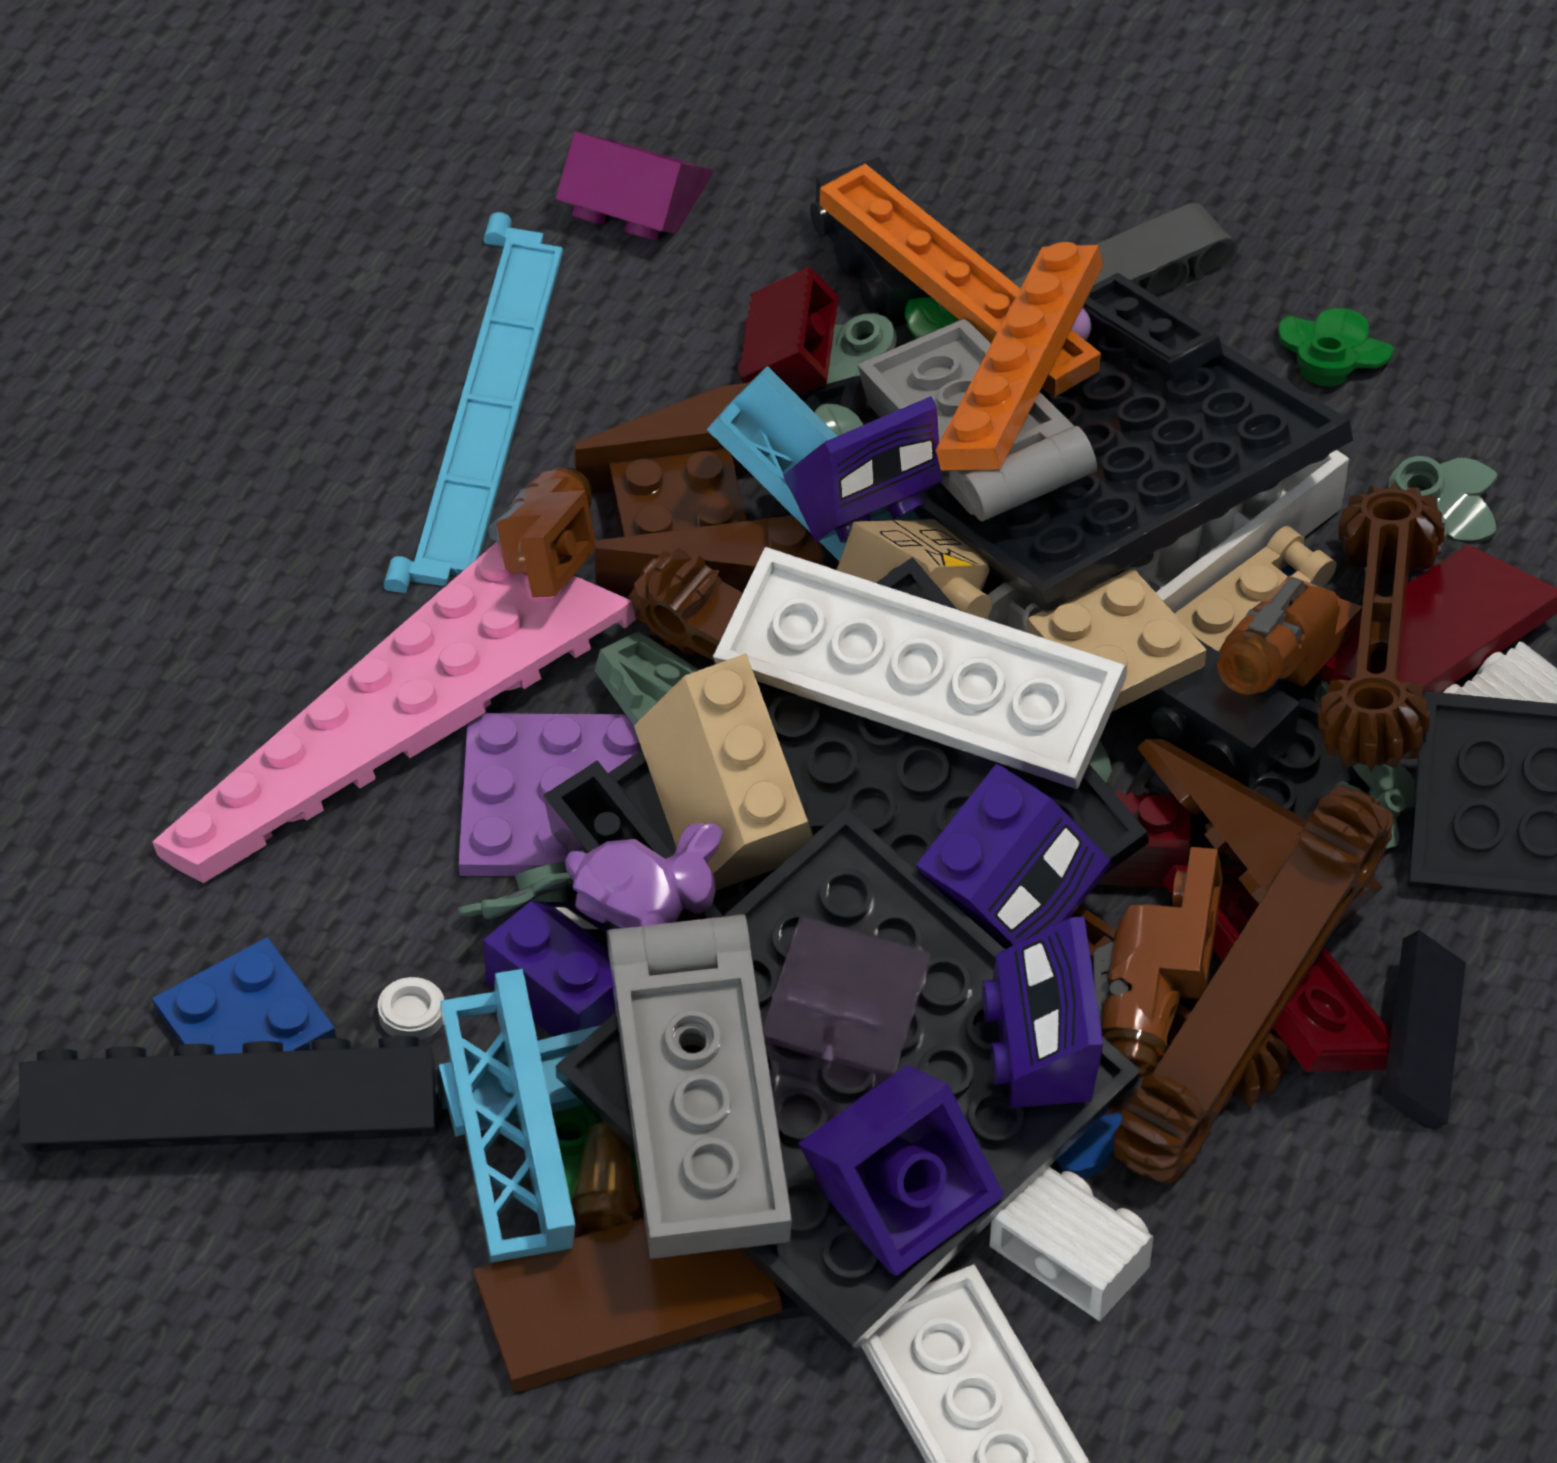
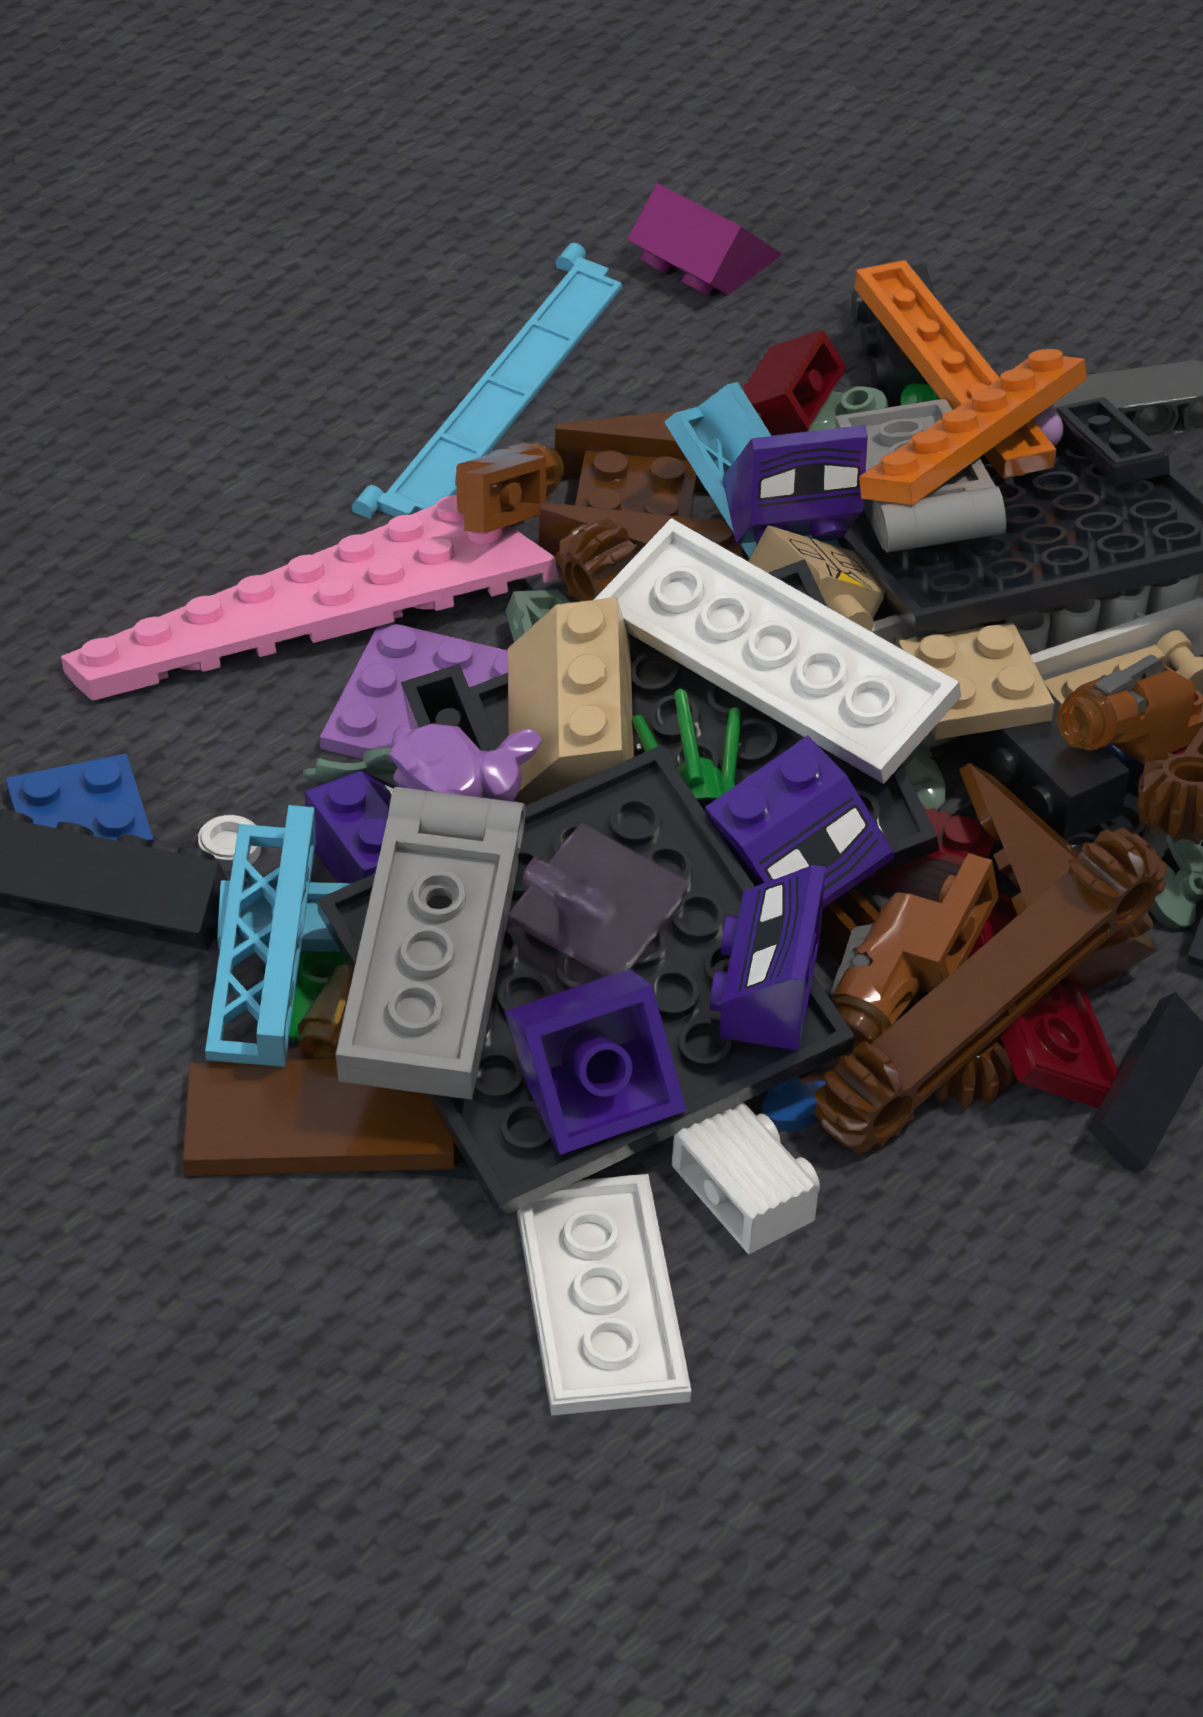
camera: 15 degrees right, 5 degrees down
(900, 831) = (698, 773): none -> green plant

